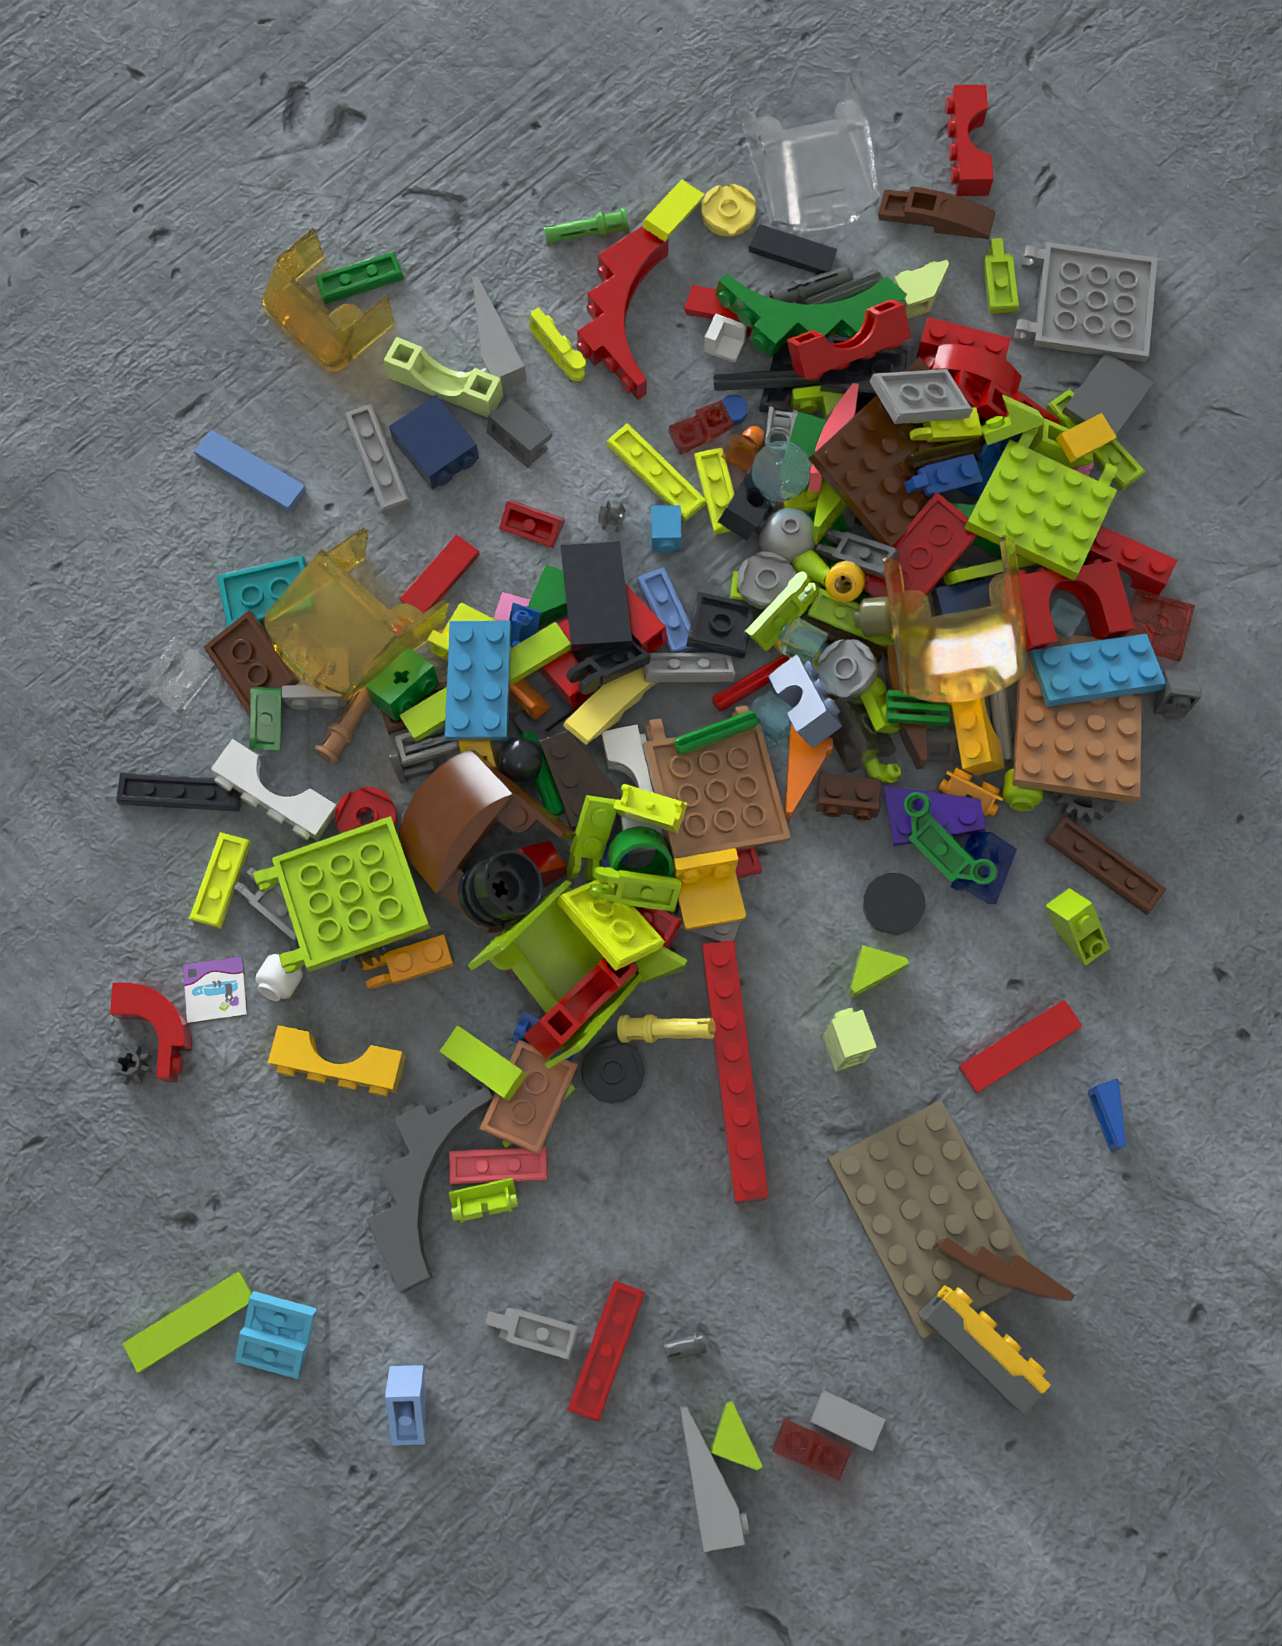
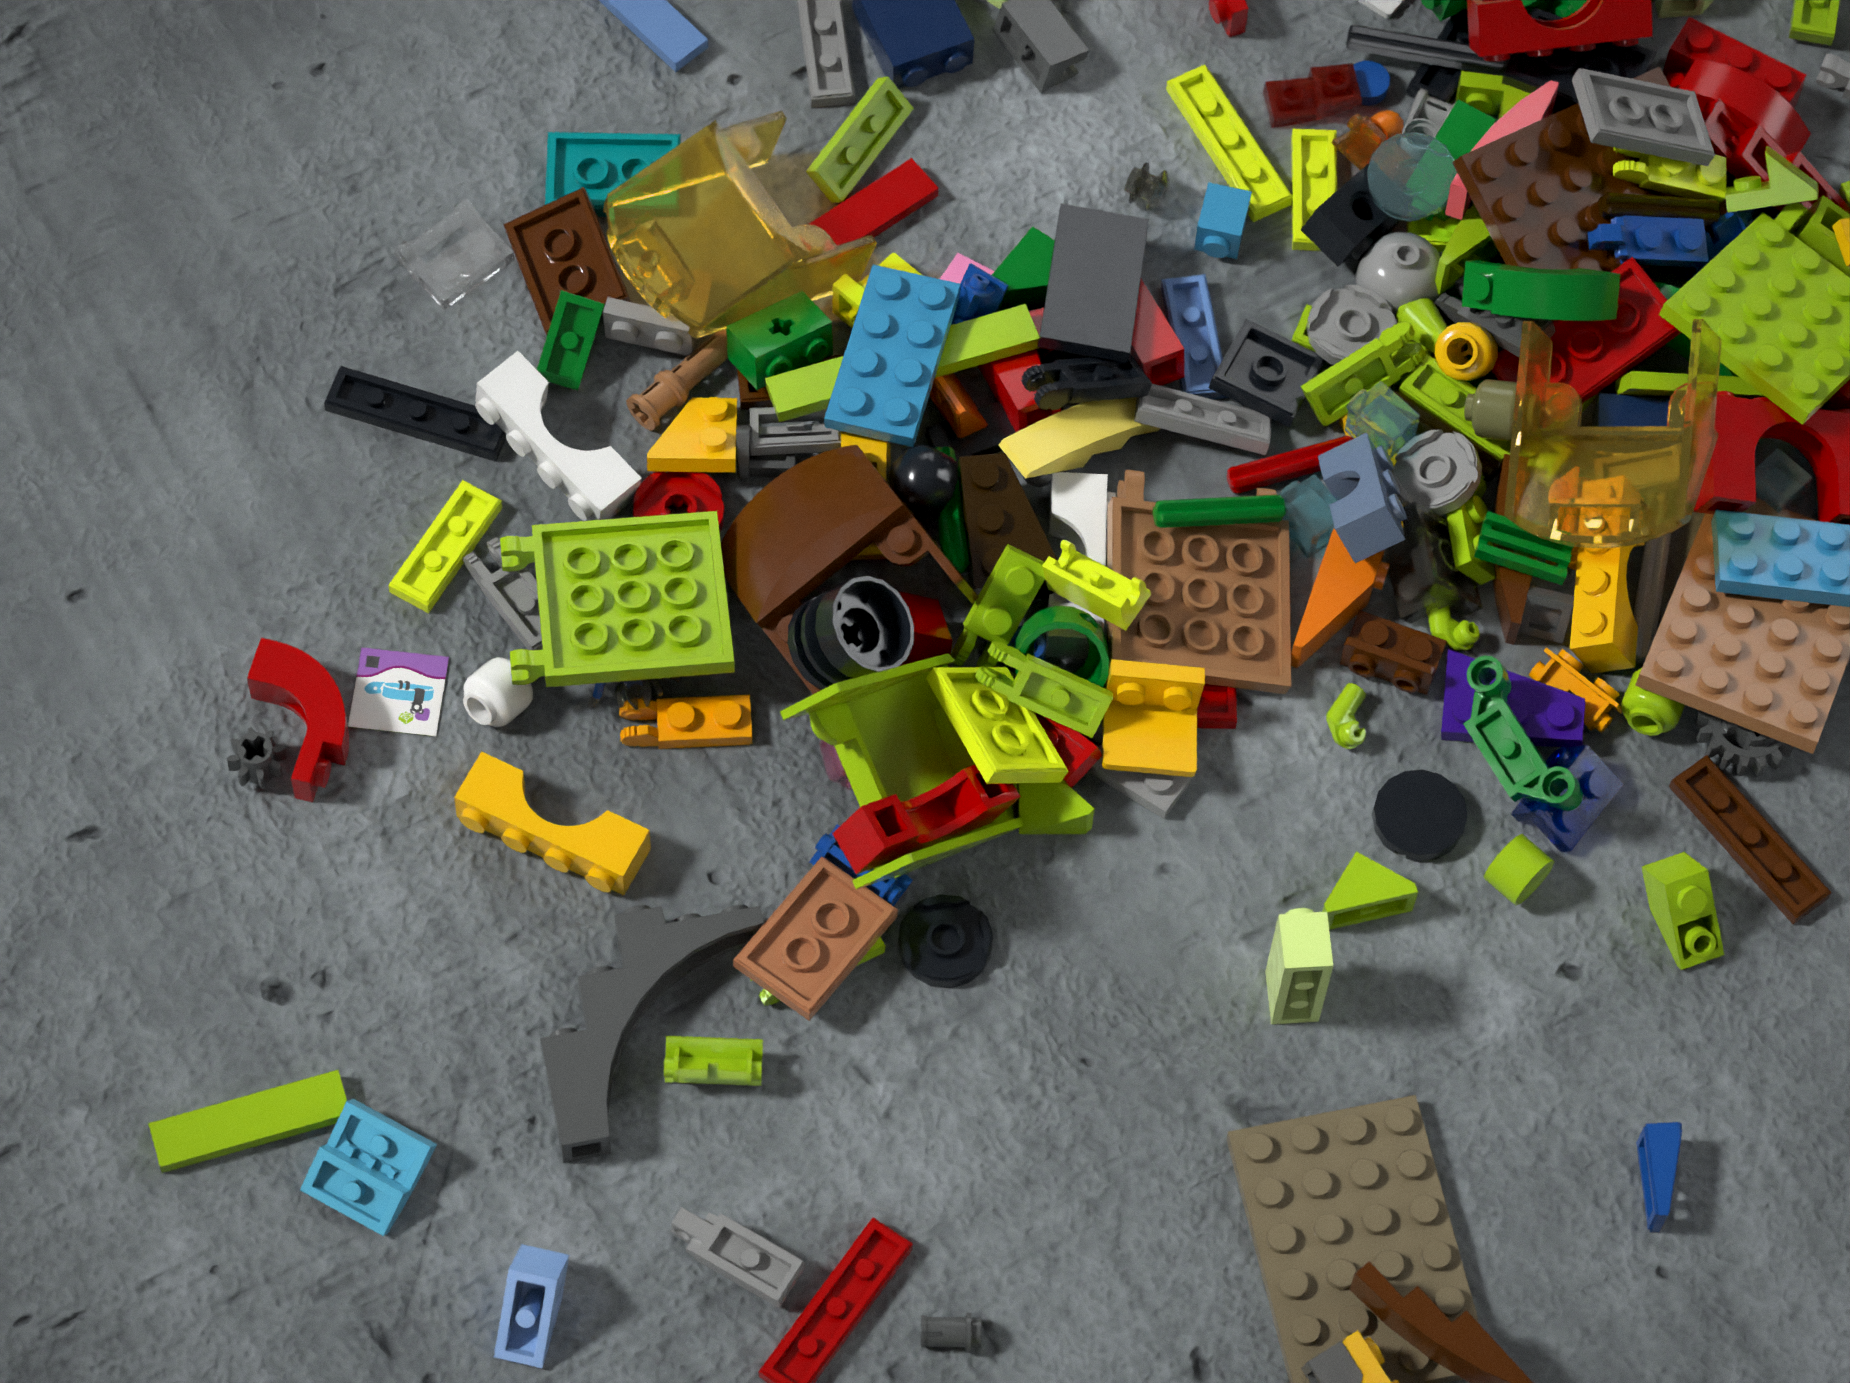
camera: 10 degrees right, 10 degrees down
(366, 765) = (698, 439): none -> yellow wing
(419, 530) = (859, 140): none -> lime plate
(483, 1063) = (761, 874): lime tile -> none
(496, 1165) = (783, 1030): coral tile -> none
(531, 523) = (1025, 170): red slope -> none
(652, 1028) = (1018, 890): light yellow pin -> none
(734, 1073) = (1121, 981): red brick -> none
(827, 850) = (1341, 717): none -> lime arm
(886, 534) = (1541, 293): none -> green arch
(968, 927) = (1519, 869): none -> lime piece
(1020, 1046) = (1553, 1054): red tile -> none

